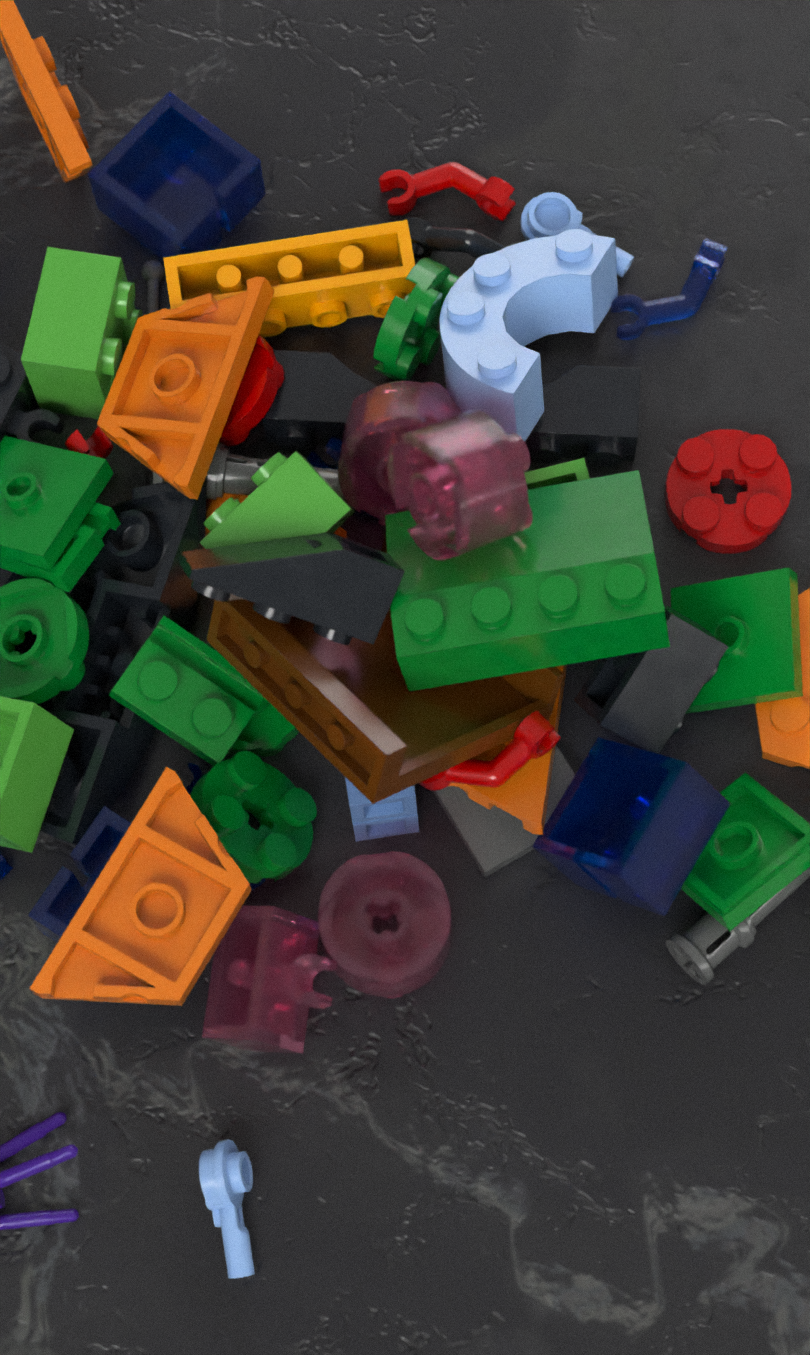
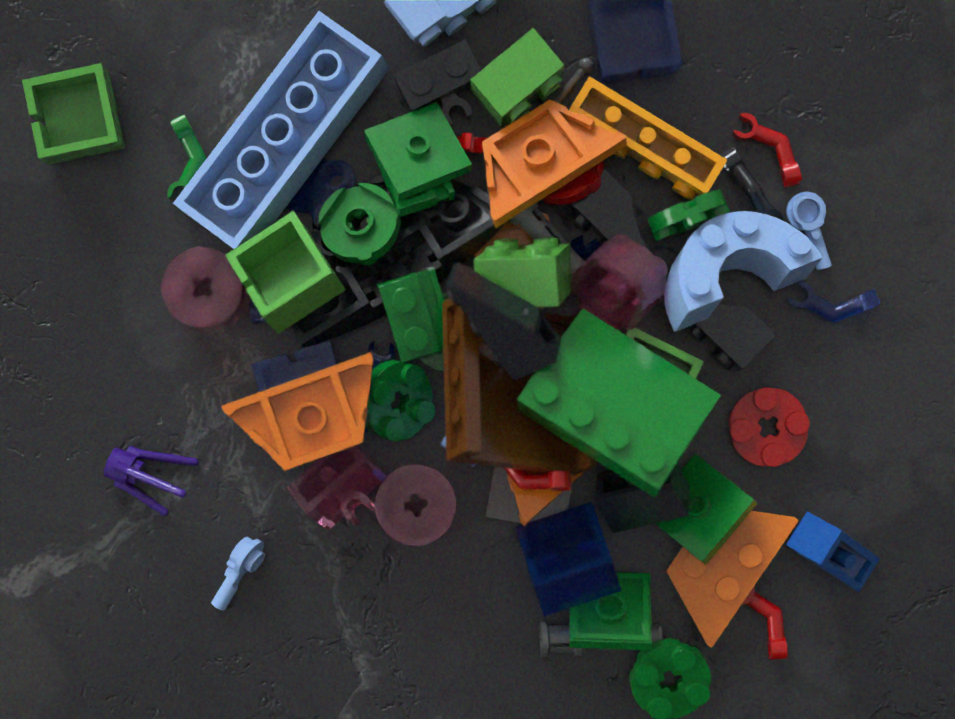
camera: 30 degrees right, 15 degrees up
(461, 483) = (622, 338): clear pink brick -> none

